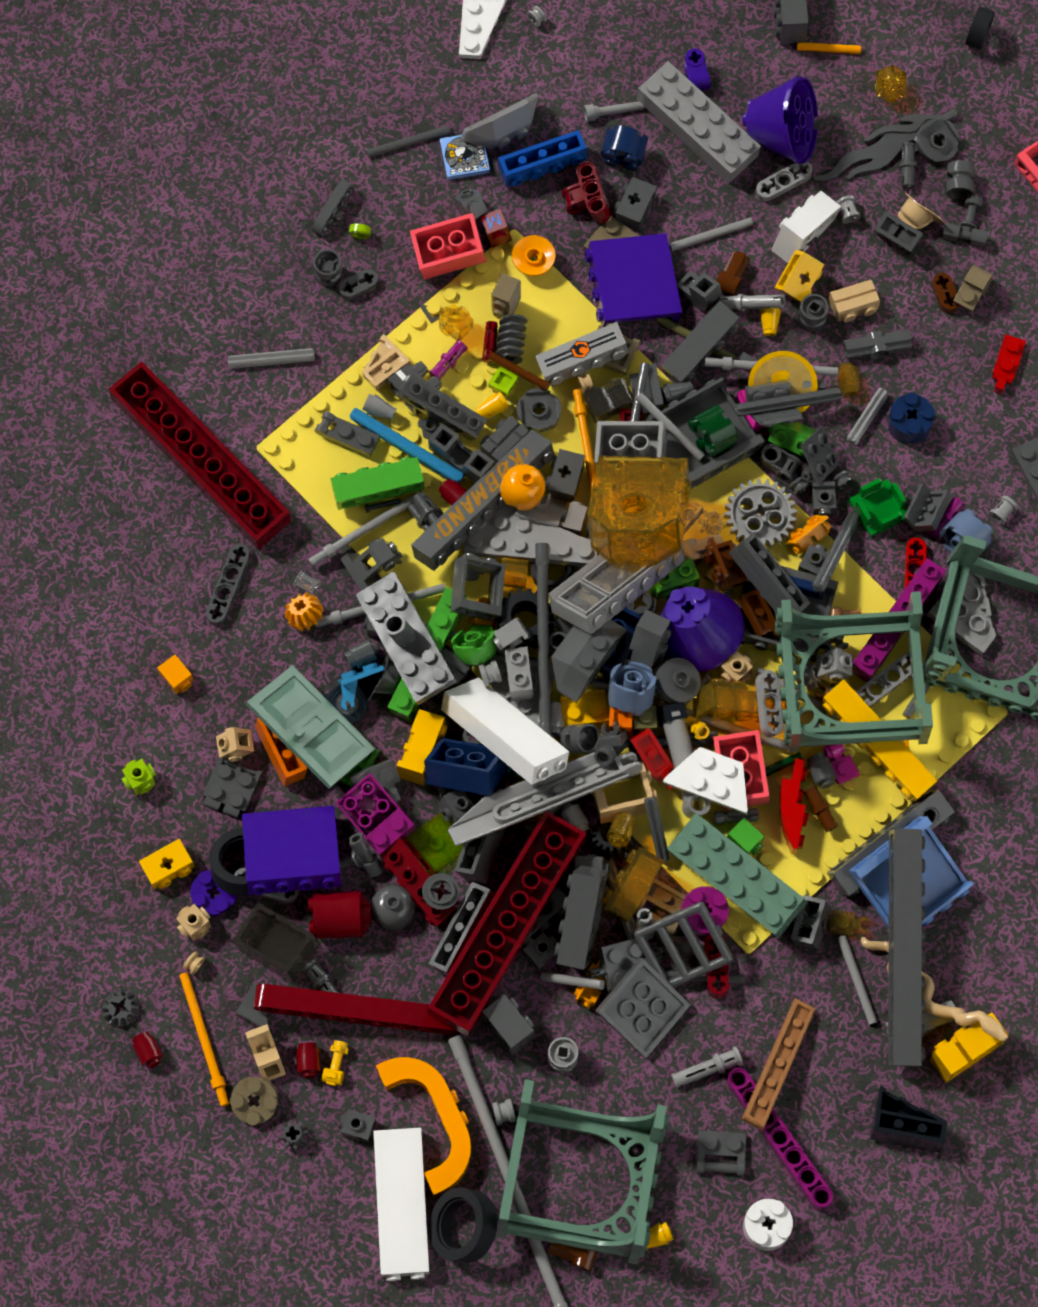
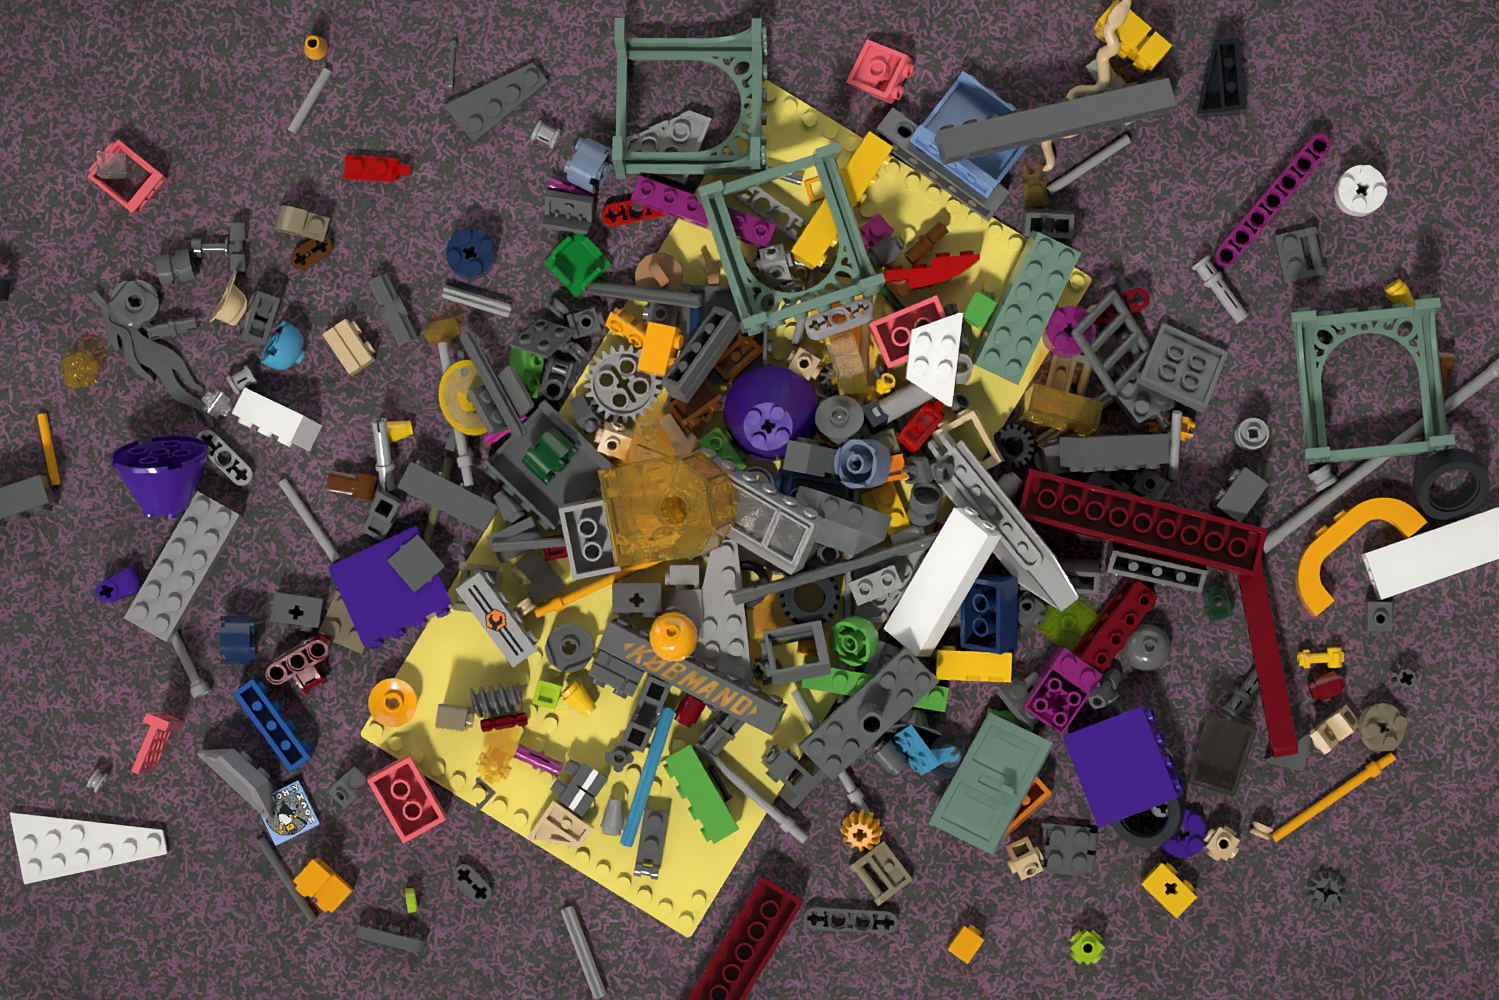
camera: 105 degrees left, 15 degrees up
(147, 1049) = (1362, 849): dark red brick -> none
(262, 627) = (887, 868): none -> dark tan plate
(307, 583) = (830, 844): clear bush -> none
(328, 268) = (465, 921): dark grey wheel -> none
(339, 915) = (1175, 698): dark red cylinder -> none
(397, 165) = (324, 884): none -> light orange brick
(407, 987) = (1212, 612): none -> clear green brick
(434, 883) = (1135, 590): dark grey gear -> none
(441, 407) = (602, 750): dark grey brick -> none
(490, 673) = (882, 615): light grey wheel -> none
(496, 228) = (369, 752): dark red brick -> none
(510, 634) = (839, 603): light grey brick -> none
(519, 371) = (533, 680): reddish brown bar -> none
(557, 56) = (155, 740): none -> coral fence
(621, 829) = (1010, 436): clear yellow brick -> none
(644, 918) = (1093, 392): light grey pin -> none
(648, 301) = (416, 563): none -> dark grey piece
(656, 828) = (999, 401): dark grey axle -> none
(669, 796) = (959, 403): none -> dark grey hinge
(680, 436) = (554, 503): light grey bar -> none
(712, 490) = (613, 440): none -> tan brick
(741, 473) = (585, 414): none -> dark grey piece
(778, 1064) = (1200, 219): medium nougat tile -> none
(784, 544) = (660, 349): none -> light orange brick
(799, 265) = (340, 411): yellow brick -> none
(813, 312) = (376, 386): dark grey wheel -> none
(832, 183) = (216, 404): none -> clear gear
(852, 571) = (659, 272): none -> medium nougat tile
(867, 247) = (284, 347): none -> dark azure cylinder
(990, 813) = (881, 72): none -> coral plate

